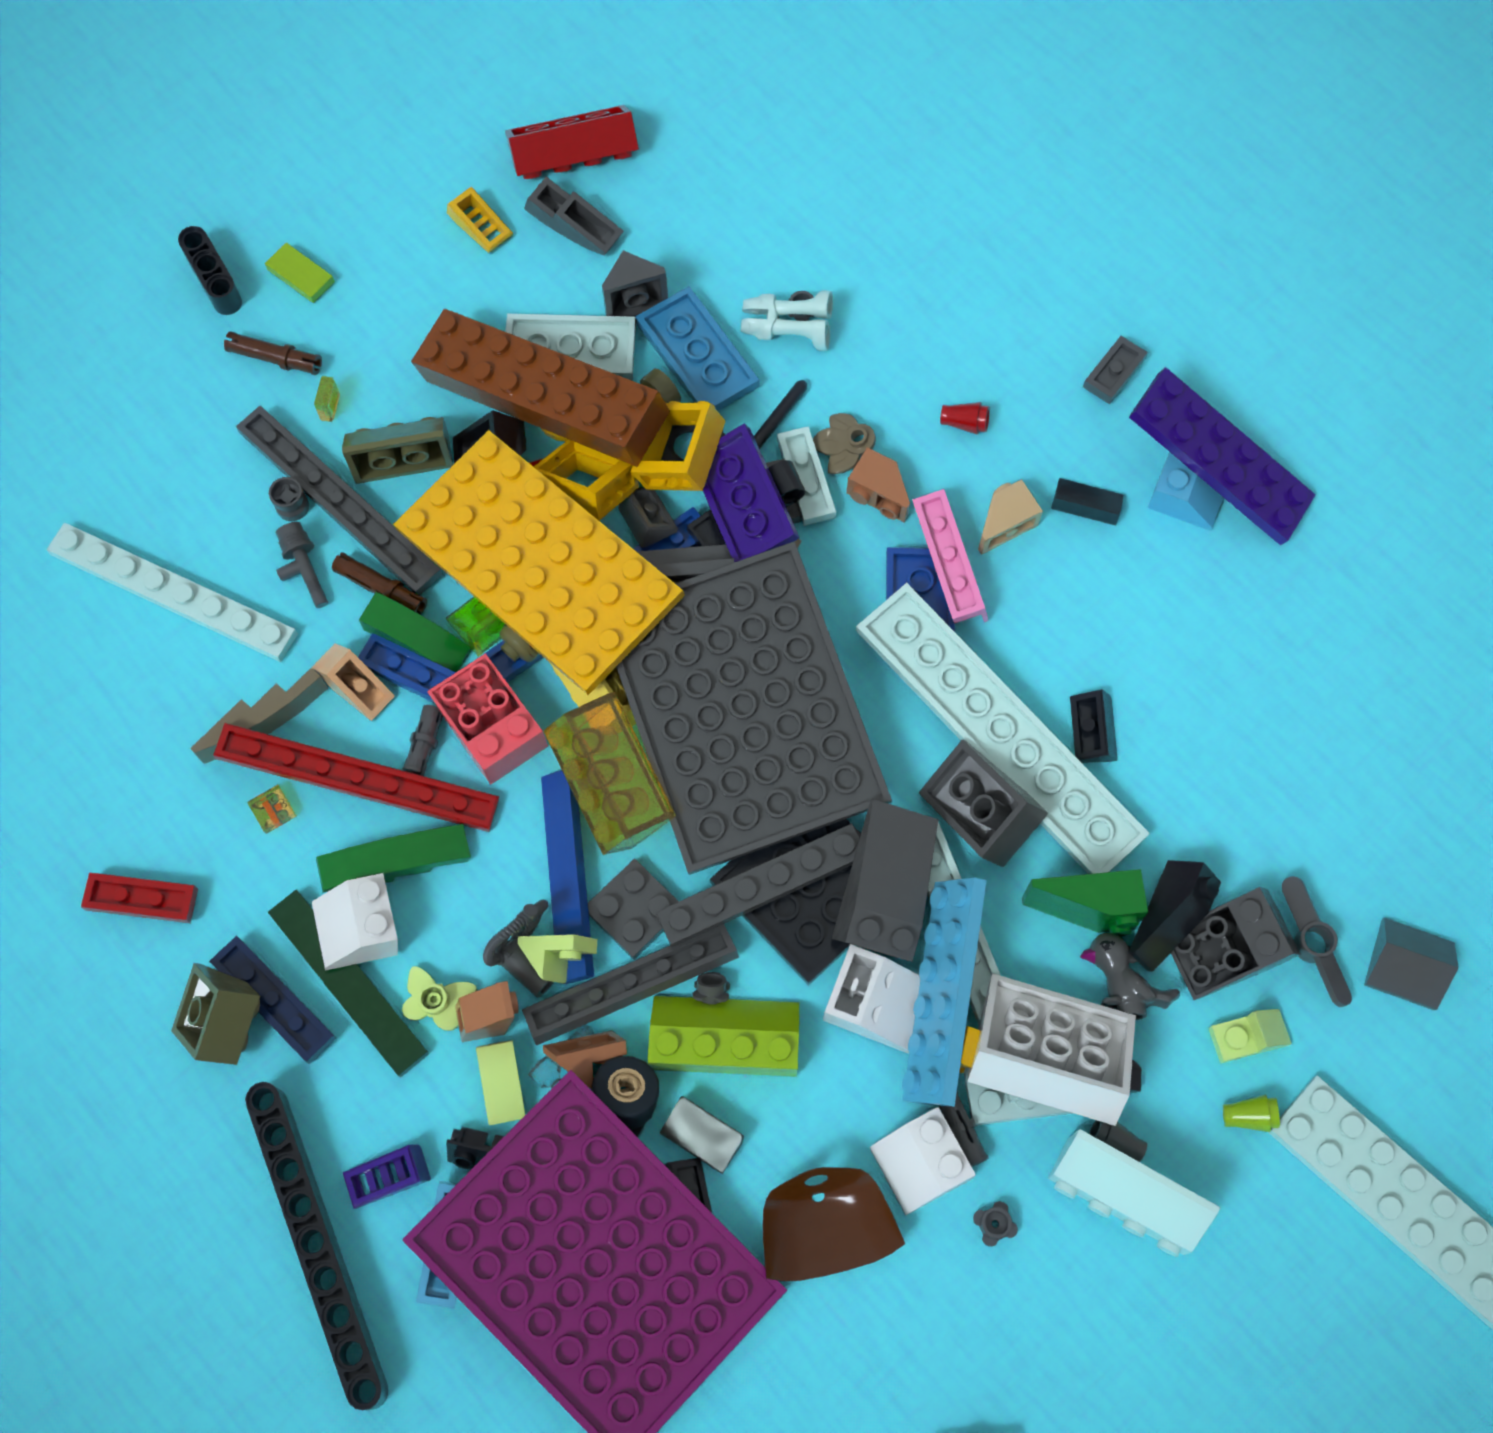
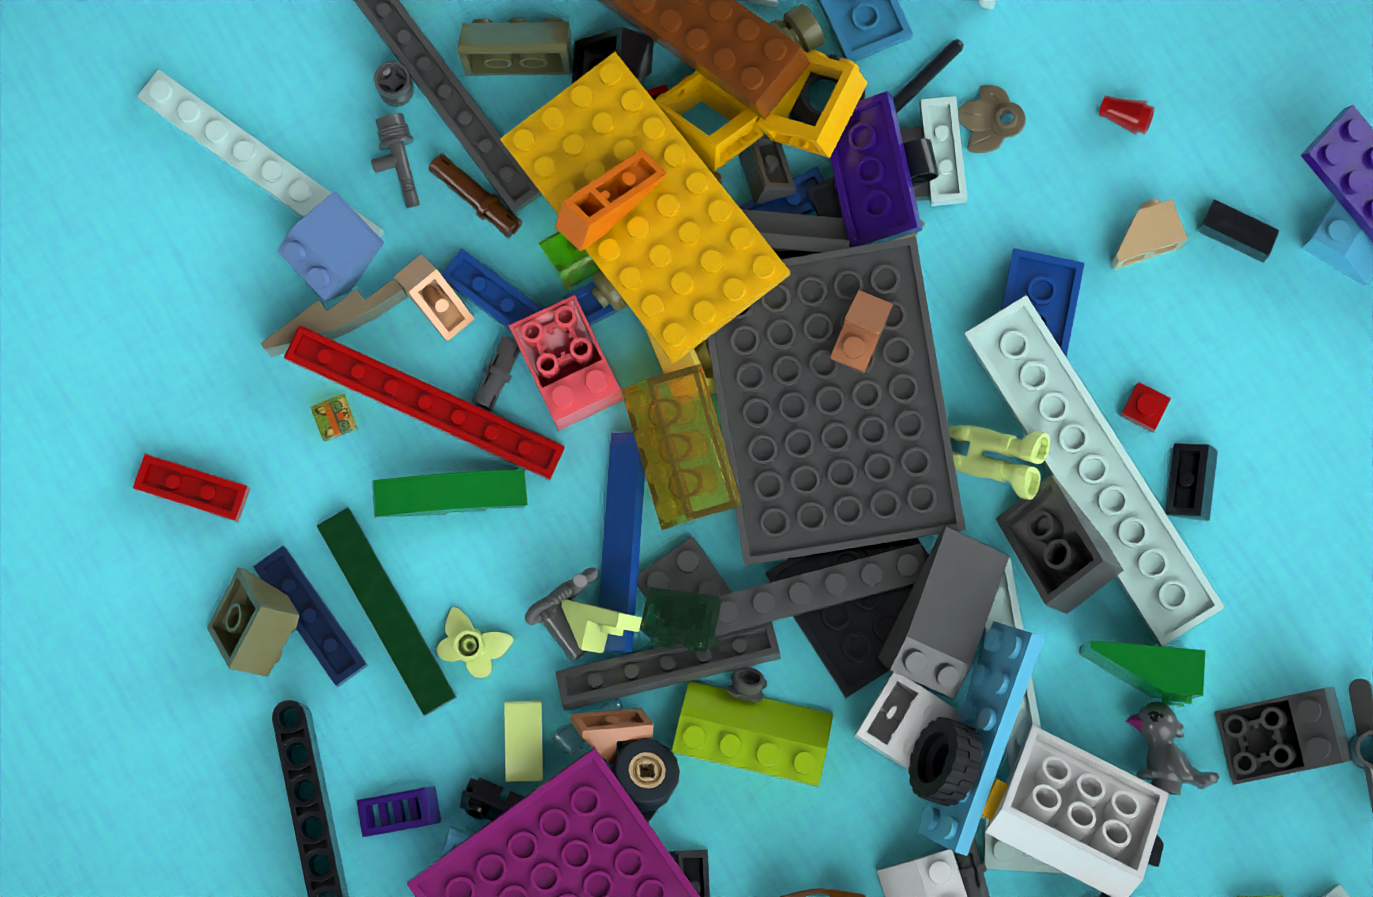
camera: 15 degrees right, 10 degrees up
(247, 650) = (331, 247): none -> medium blue slope
(355, 922) = (402, 554): white slope -> none
(413, 632) = (504, 257): green slope -> none
(486, 1012) = (520, 670): nougat slope -> none
(500, 555) = (608, 199): none -> orange slope
(636, 934) = (681, 619): none -> clear green bracket
(702, 1134) = (713, 829): slope -> none
(759, 634) = (861, 331): none -> nougat slope
(880, 485) = (1020, 175): nougat slope -> none
(921, 1037) = (962, 764): none -> black tyre
(937, 744) = (1023, 478): none -> yellowish green piece
(949, 557) = (1077, 271): bright pink panel -> none
(1036, 668) = (1145, 407): none -> red plate
(1115, 369) = (1301, 86): dark grey plate -> none
(1175, 909) = (1234, 691): black slope -> none
(1249, 1035) = (1281, 831): yellowish green slope -> none

